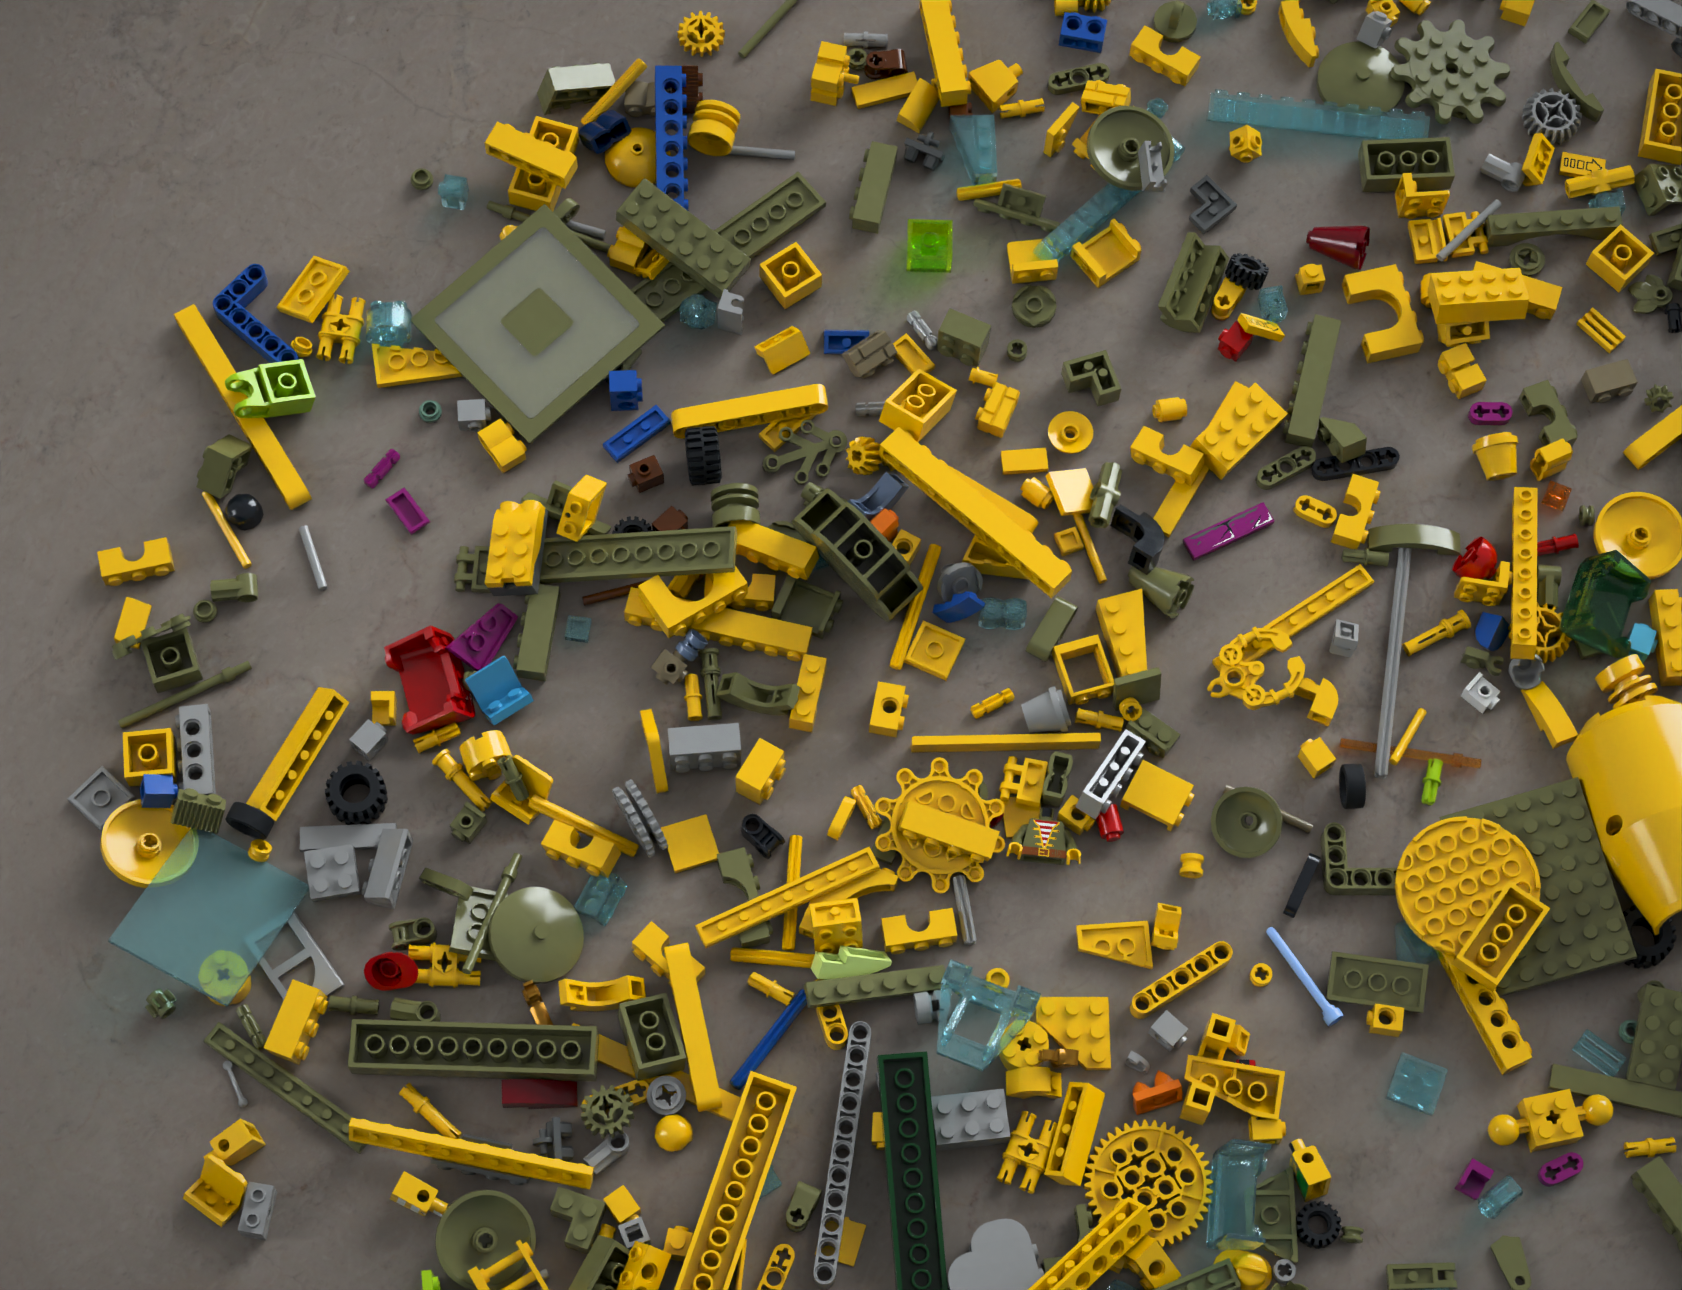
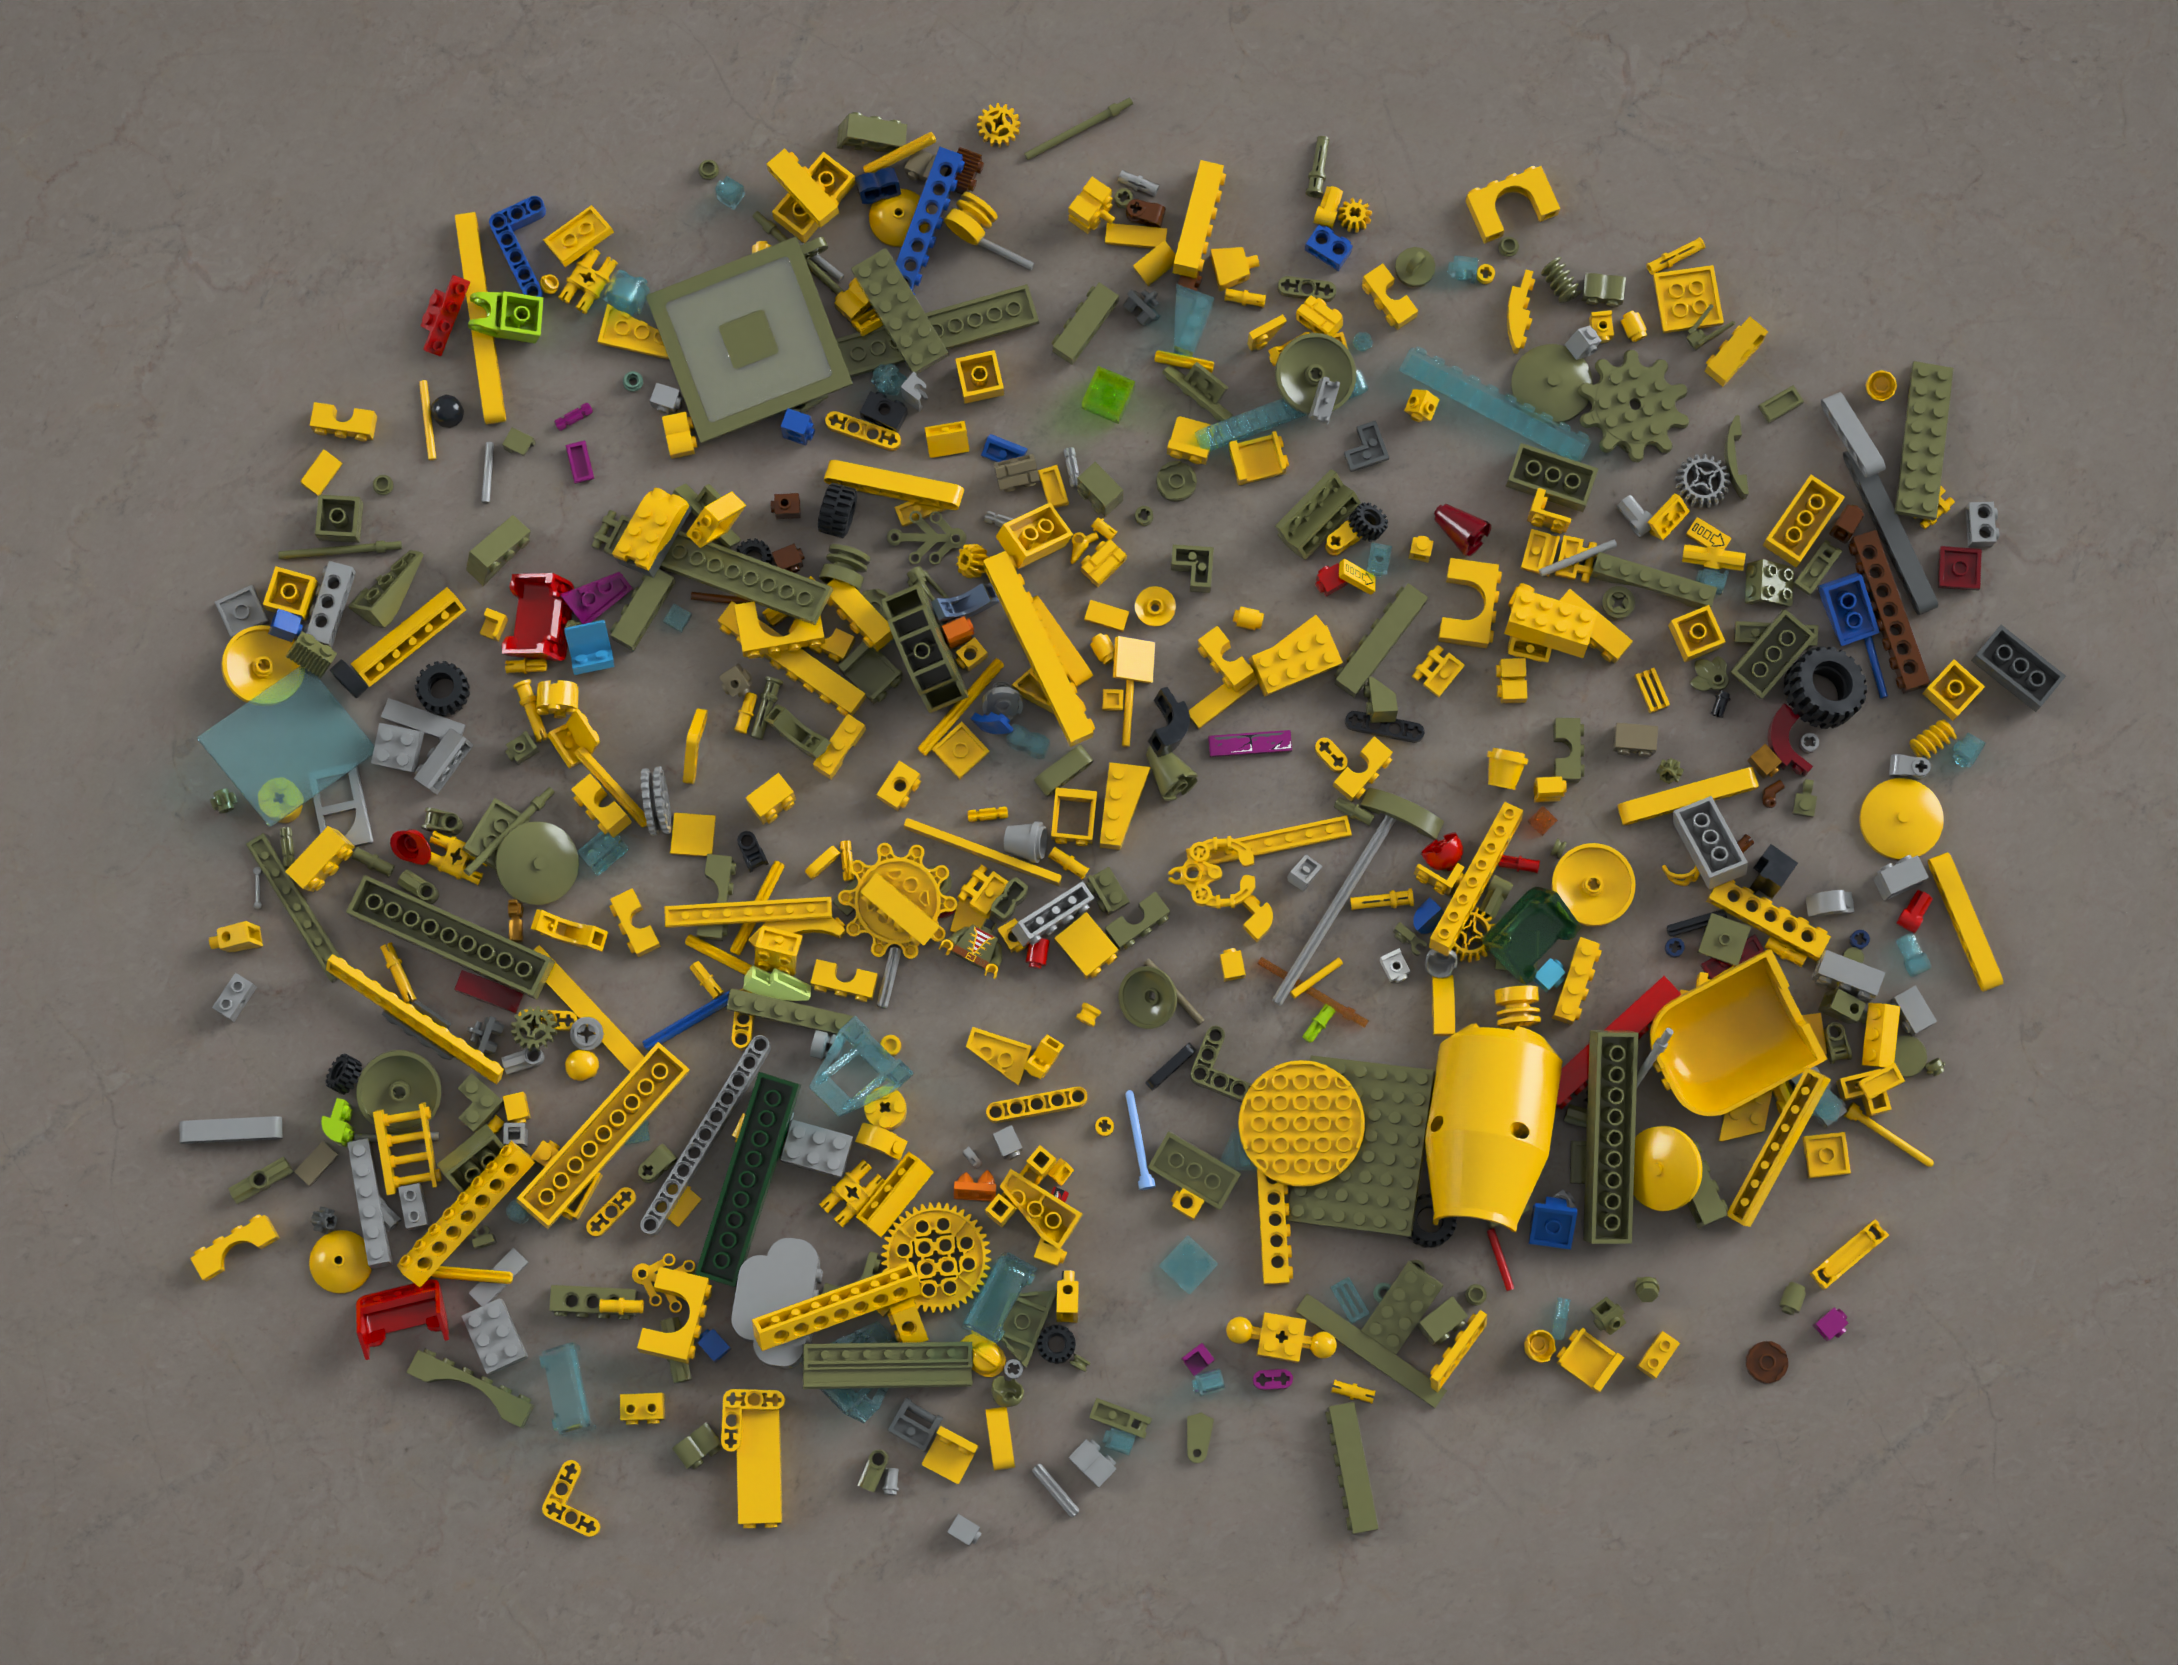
camera: 25 degrees right, 10 degrees up
(124, 647) = (352, 491): olive plant -> none
(200, 412) = (443, 313): none -> red bracket
(217, 1191) = (208, 970): yellow bracket -> none
(221, 465) = (443, 364): olive brick -> none
(242, 588) = (419, 477): olive piece -> none
(255, 724) = (384, 598): none -> olive wedge
(259, 850) = (346, 710): yellow bush -> none
(334, 513) = (518, 442): none -> olive panel
(356, 630) = (497, 549): none -> olive wedge
(369, 739) = (471, 646): light grey brick -> none
(407, 1191) = (354, 1028): yellow torso -> none
(415, 1245) = (343, 1074): none -> black tyre
(446, 884) = (482, 793): olive beam -> none
(513, 778) = (569, 726): olive axle -> none
(636, 433) = (795, 466): blue tile -> none
(651, 1036) = (593, 982): olive brick -> none
(691, 645) = (761, 669): sand blue wheel -> none
(692, 377) = (861, 434): none -> yellow beam
(693, 1027) = (628, 987): yellow beam -> none
(704, 747) = (734, 761): light grey brick -> none
(715, 354) = (875, 403): none -> black brick
(965, 401) = (1080, 544): none -> yellow animal
(1060, 1058) = (909, 1129): pearl gold bar -> none
(1080, 1026) = (938, 1109): yellow plate -> none
(1105, 495) = (1158, 673): olive piece -> none
(1123, 707) = (1096, 870): yellow bush -> none
(1142, 686) = (1108, 850): olive tile -> none
(1209, 734) = (1124, 933): none -> olive arch
(1290, 459) = (1339, 710): olive beam -> none
(1352, 786) = (1248, 1002): black tyre -> none
(1390, 390) = (1443, 674): none -> yellow plate
(1490, 413) = (1518, 731): magenta beam -> none
(1500, 936) = (1303, 1176): yellow brick -> none

